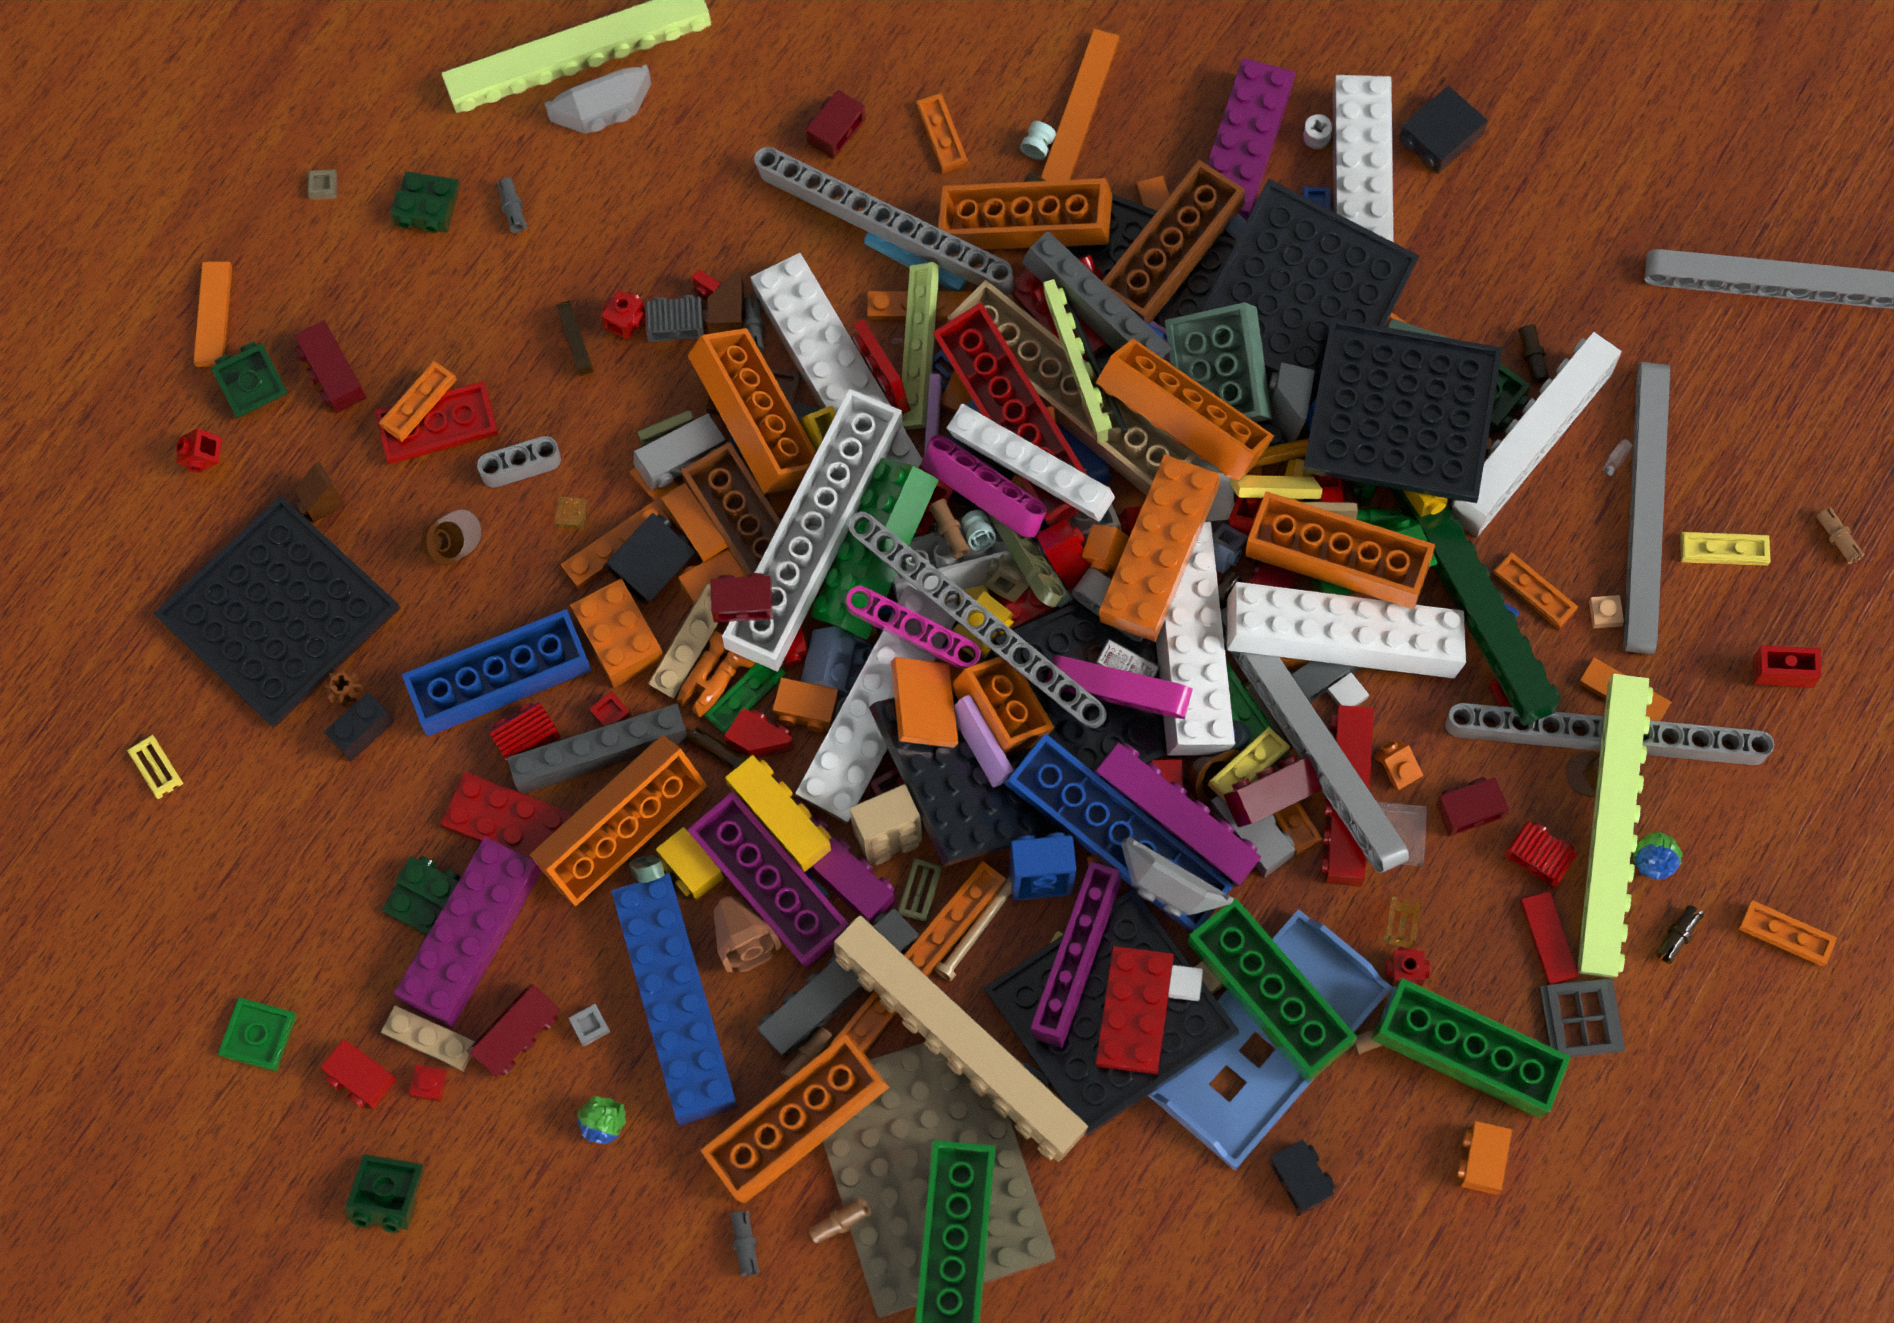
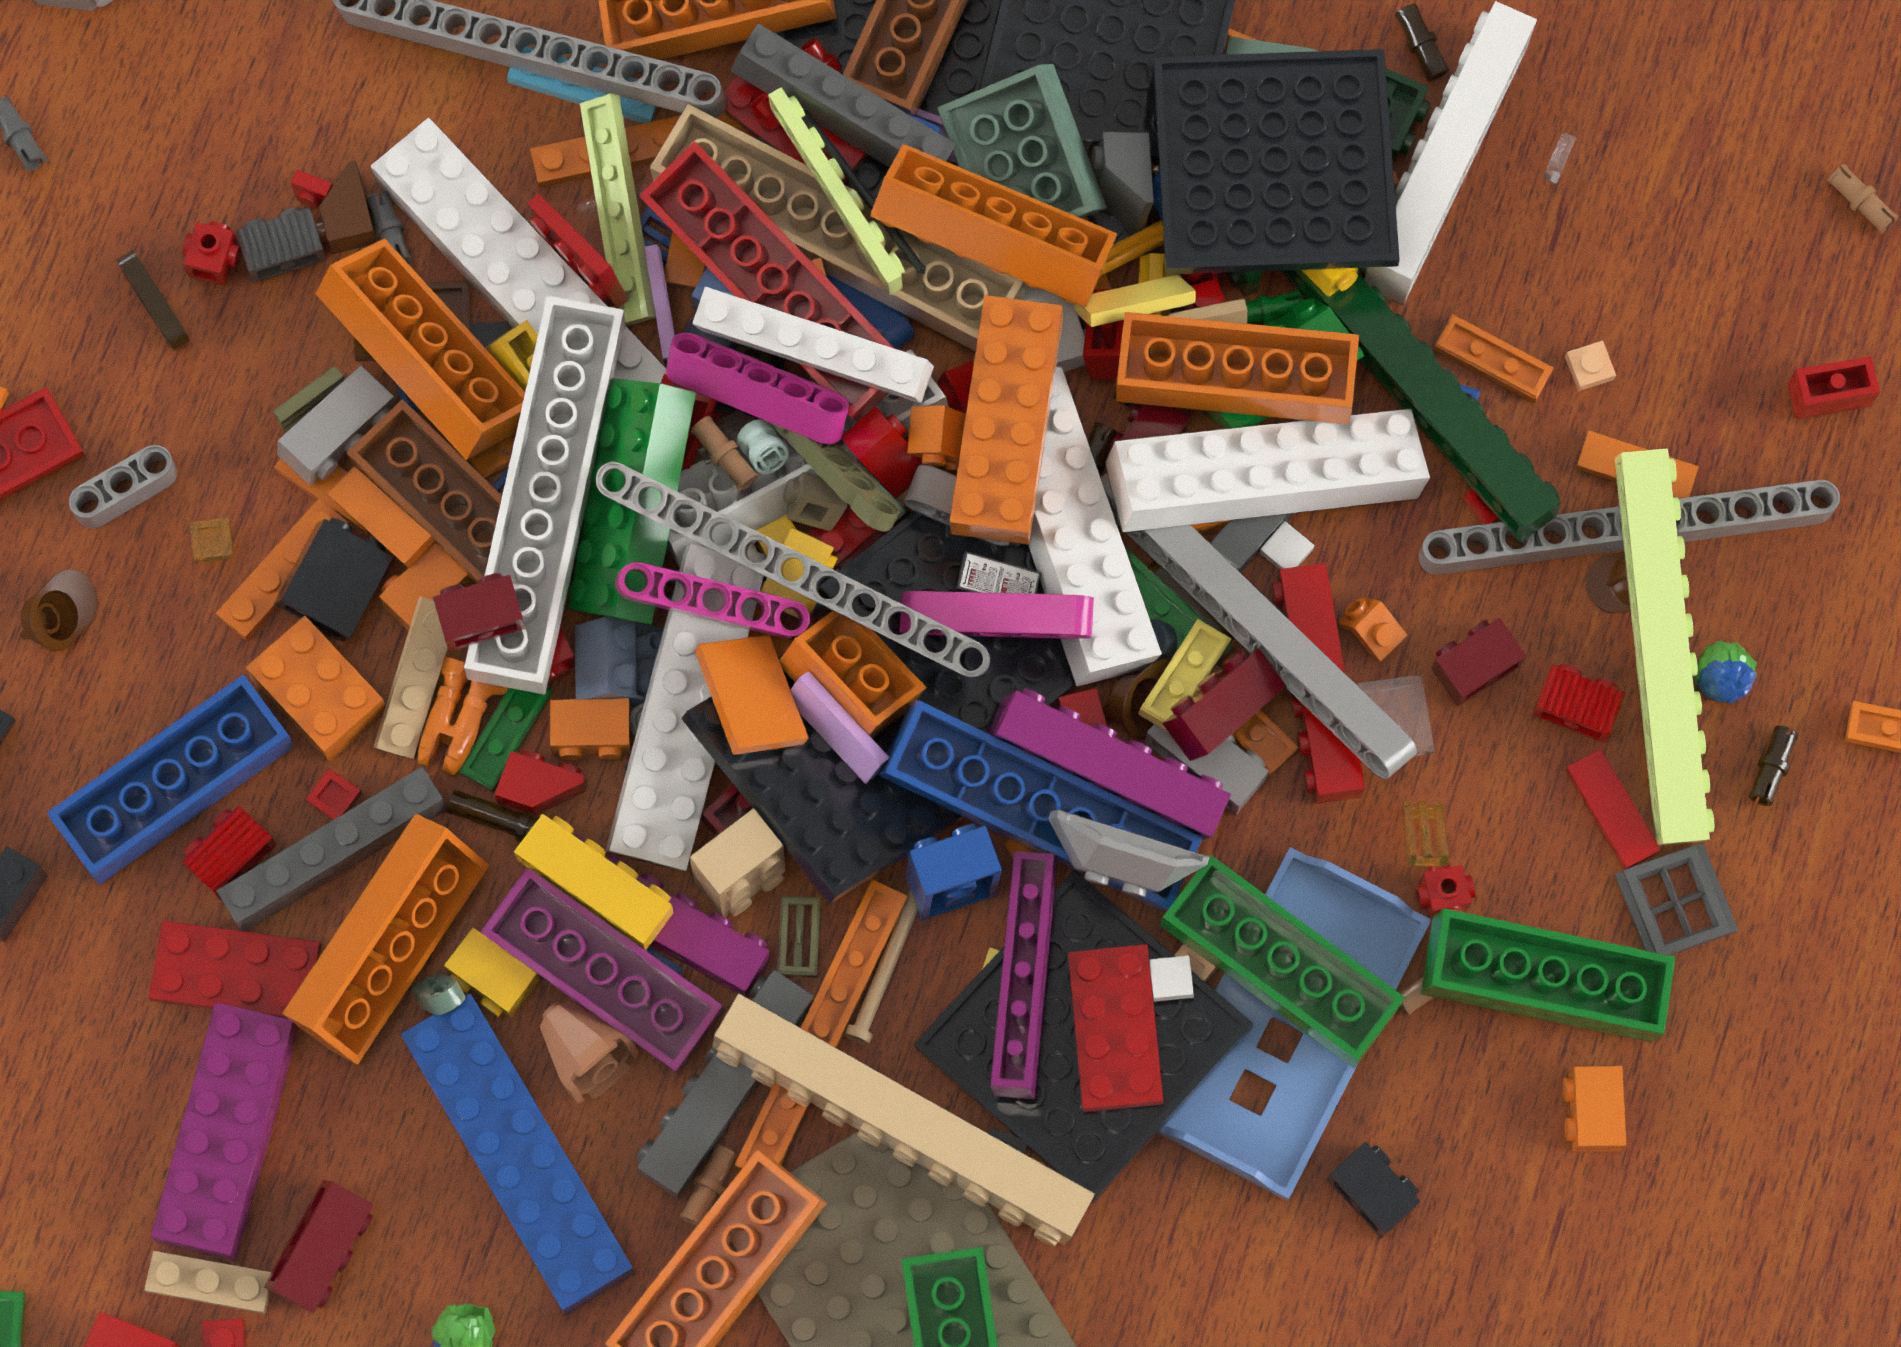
camera: 20 degrees left, 5 degrees up
(420, 894) = (149, 1097): dark green plate -> none
(589, 1025) = (415, 1214): light grey plate -> none
(1227, 547) = (1088, 391): sand blue brick -> none
(1646, 509) = (1611, 217): light grey beam -> none
(1725, 548) = (1721, 248): light yellow tile -> none

